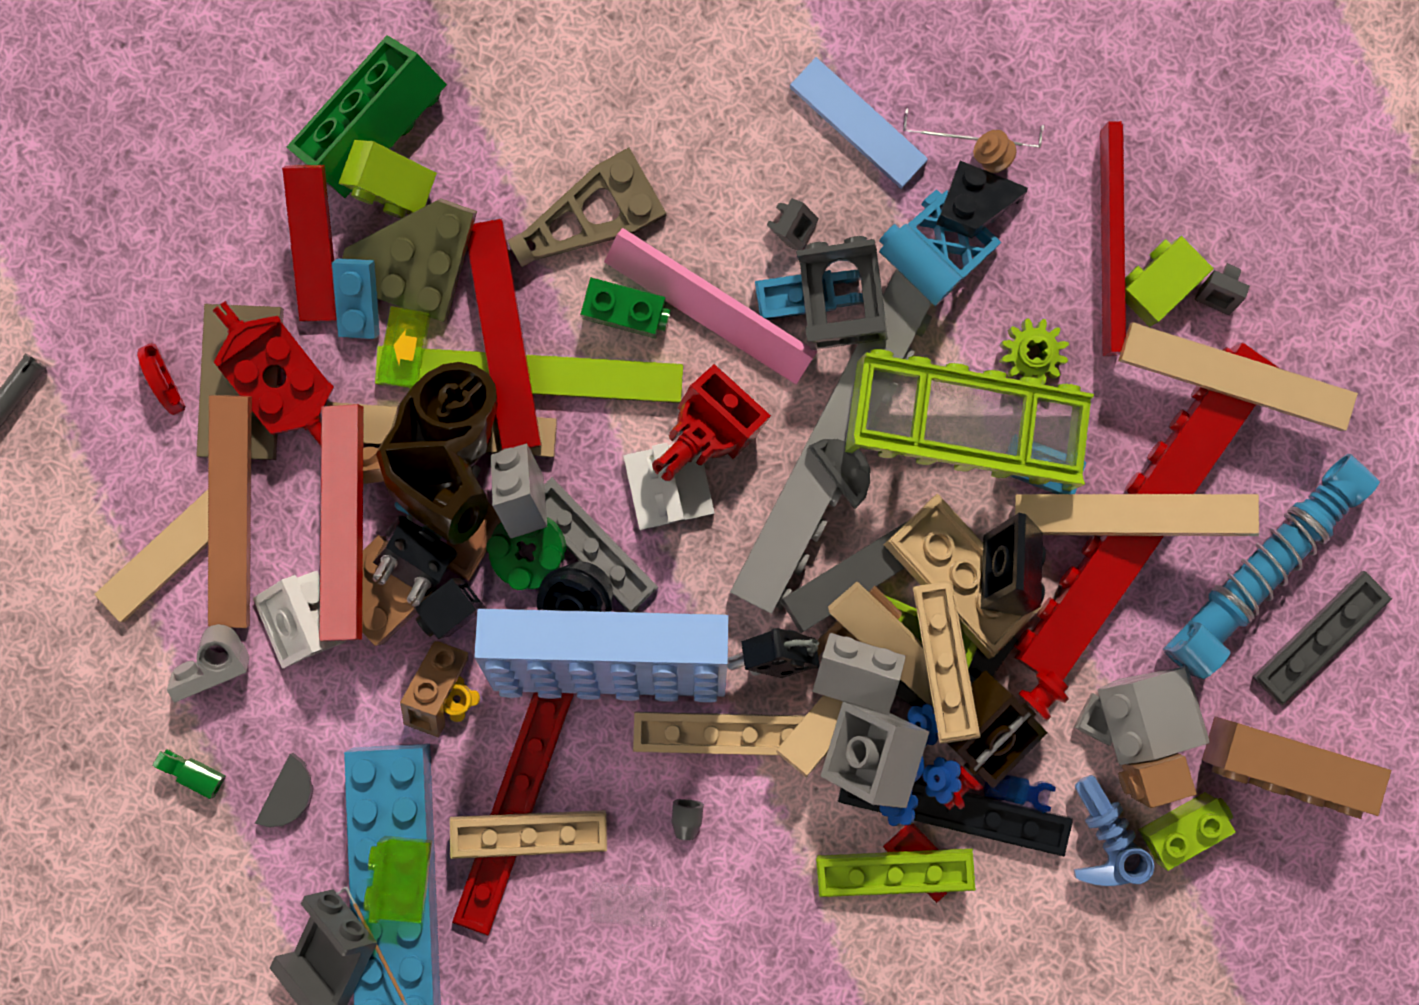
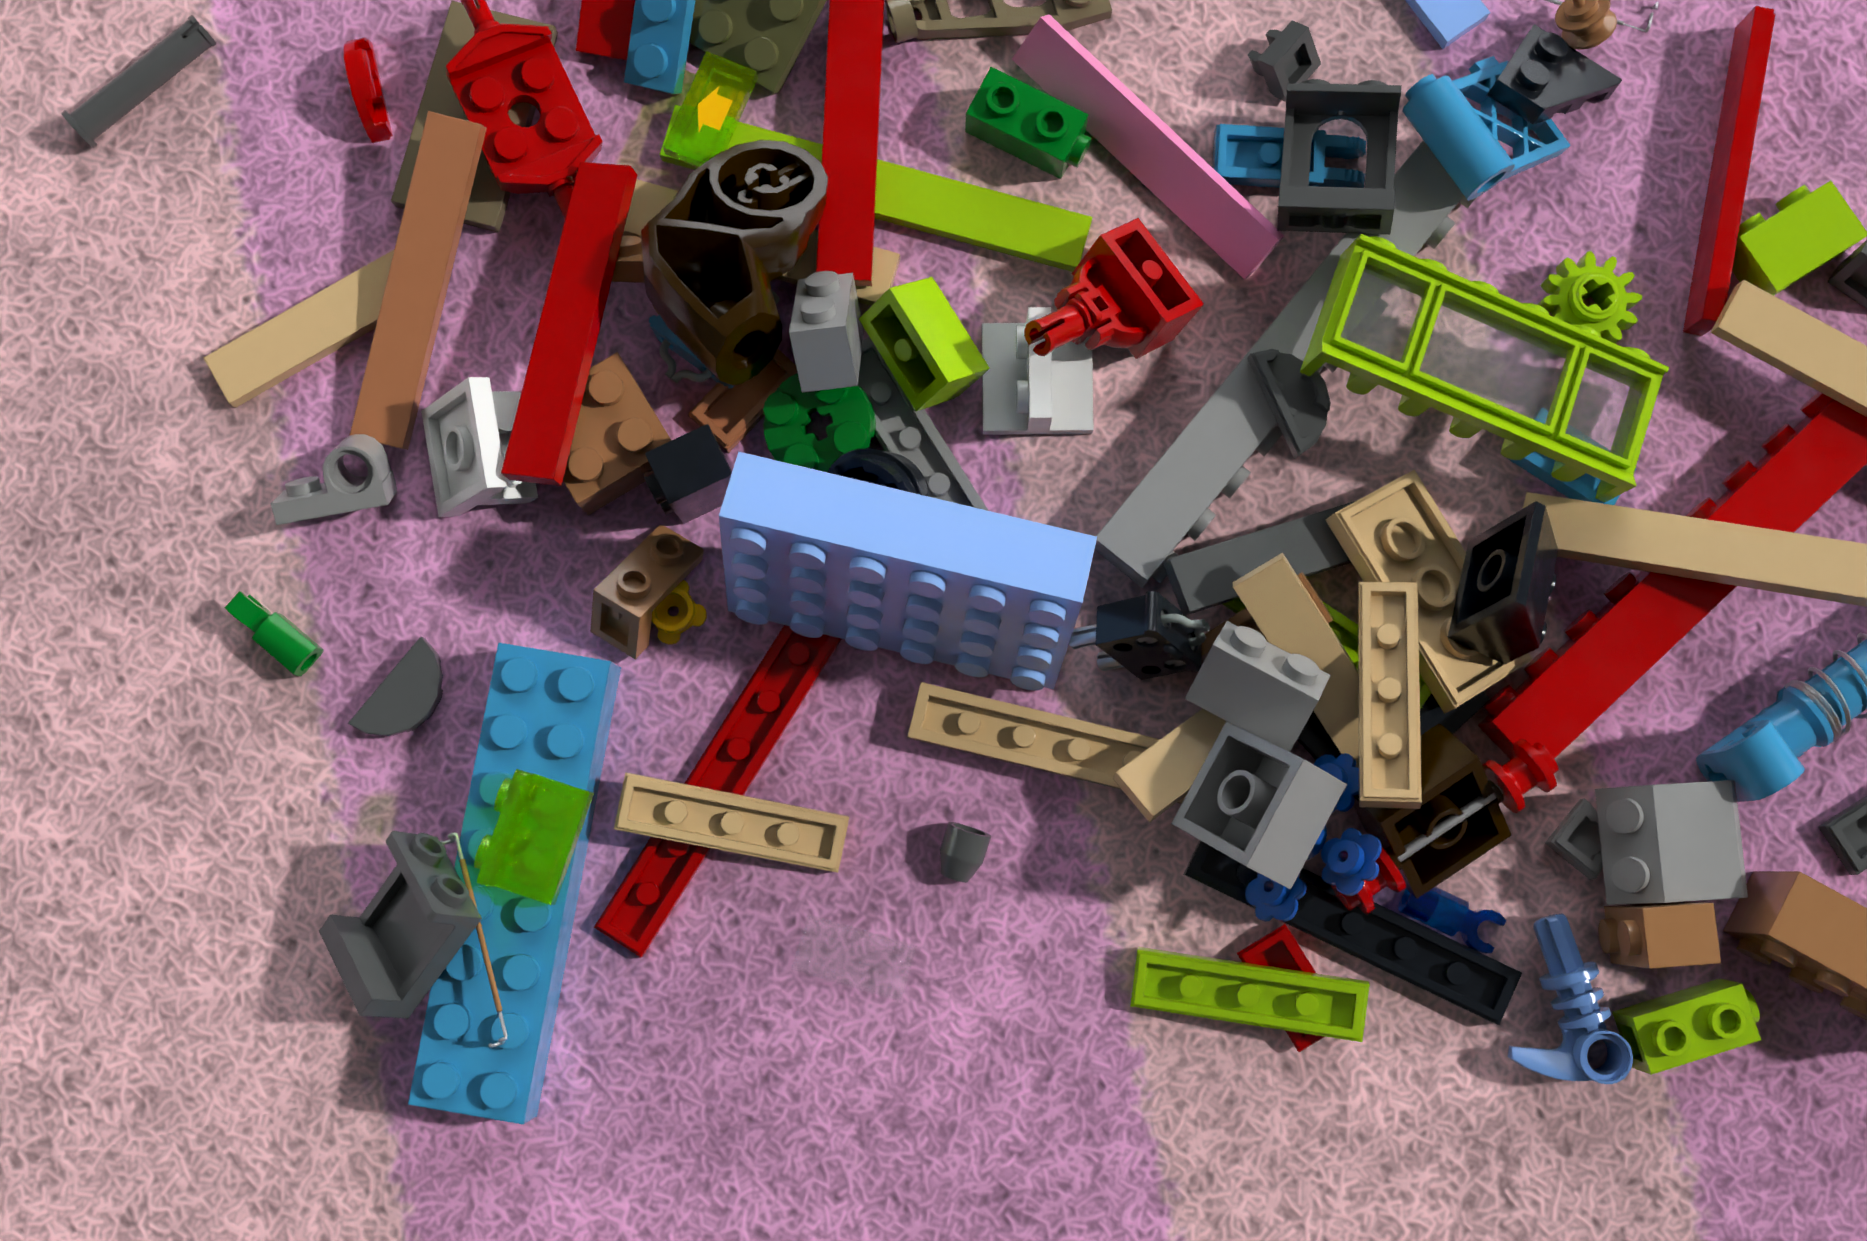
camera: 15 degrees right, 5 degrees down
(413, 557) = (660, 388): black piece -> none
(586, 481) = (923, 343): none -> lime brick

